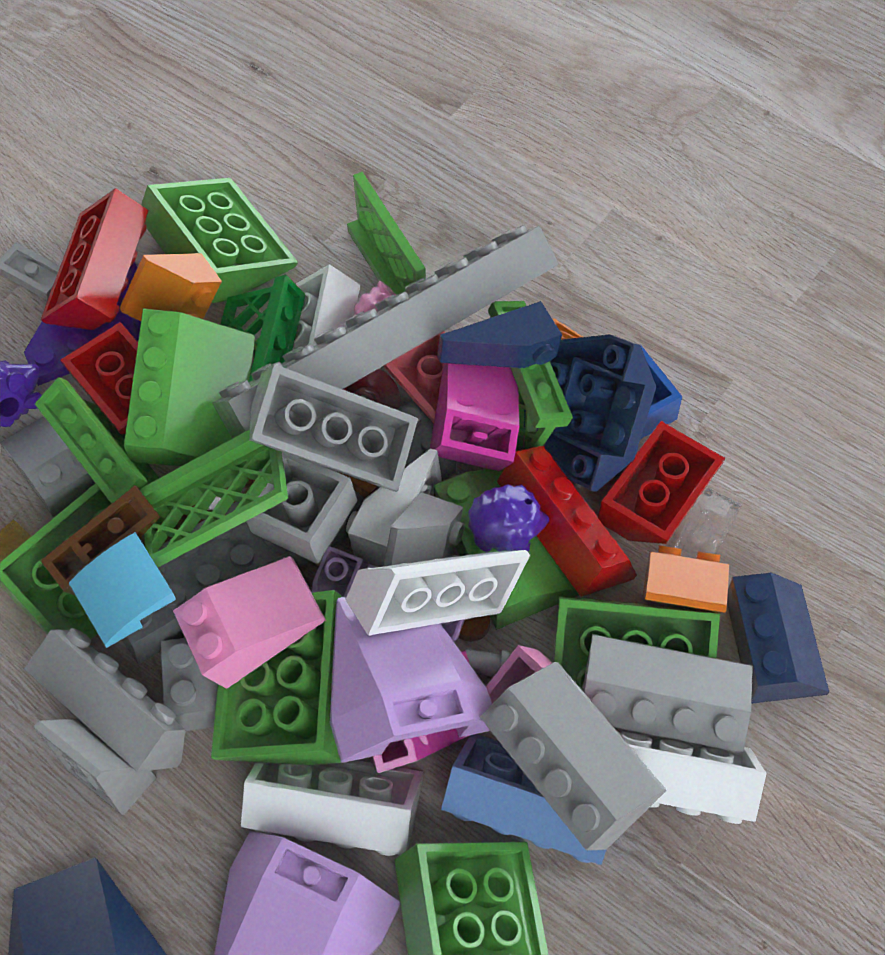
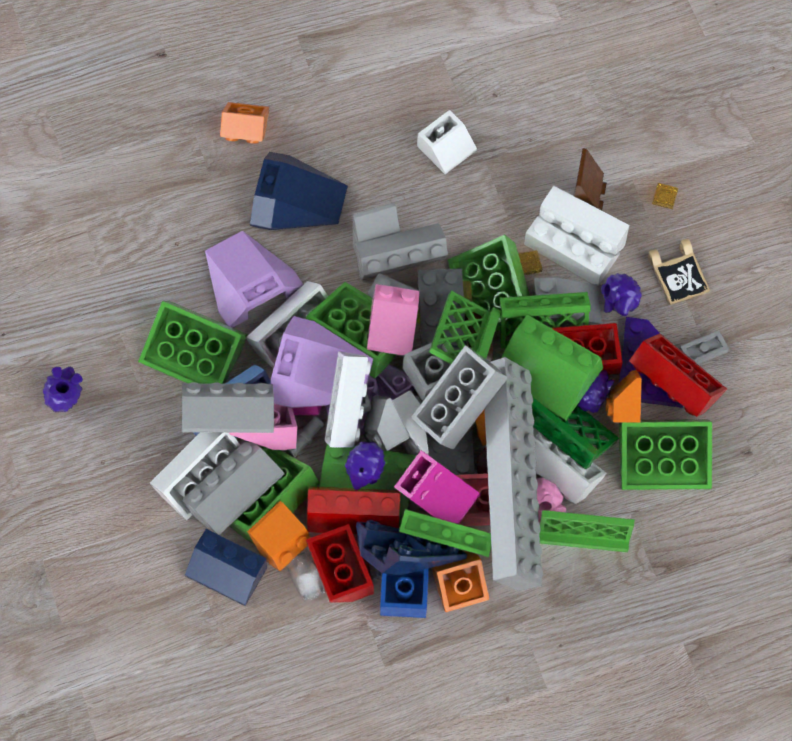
camera: 120 degrees right, 5 degrees up
(120, 519) = (480, 279): reddish brown slope -> none
(121, 589) = (444, 274): medium azure slope -> none
(507, 340) = (456, 519): dark blue slope -> none

